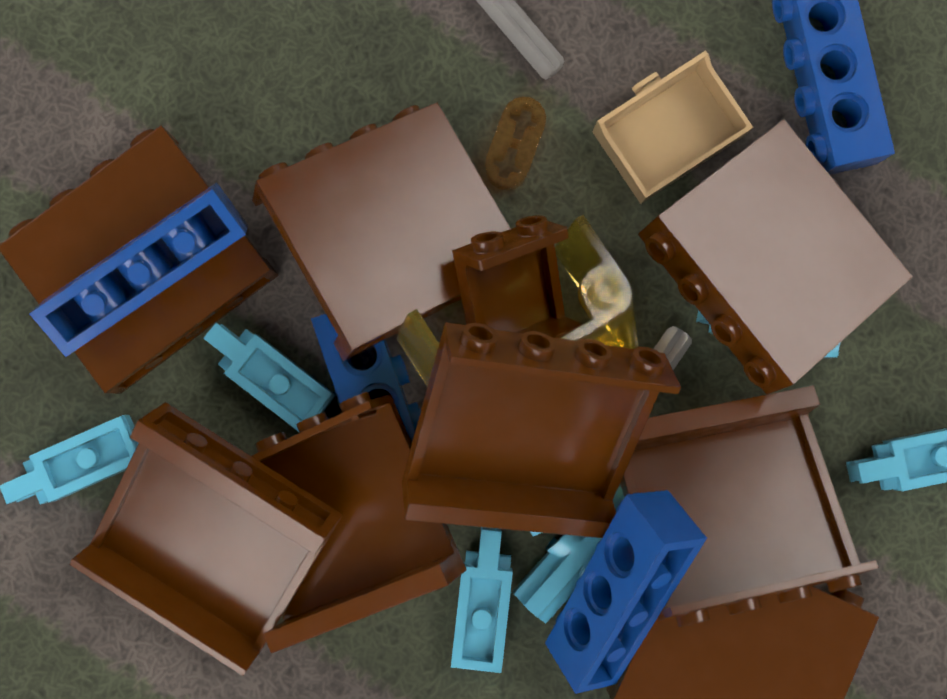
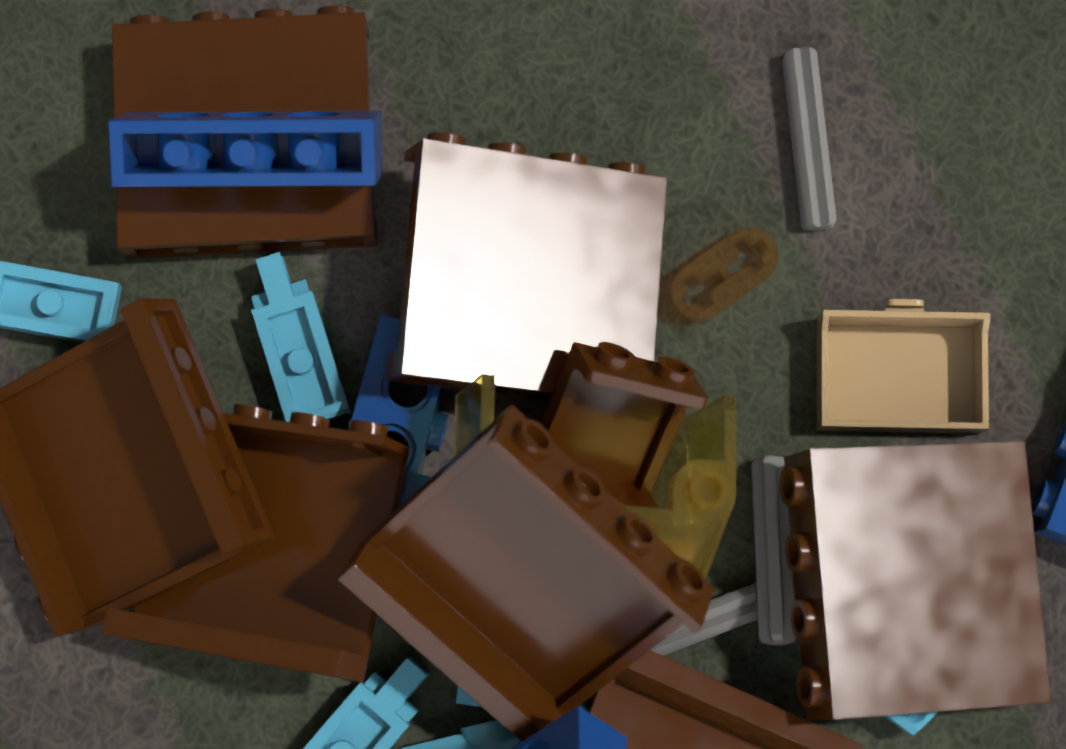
camera: 35 degrees right, 5 degrees down
(668, 300) = (773, 578): none -> light grey axle

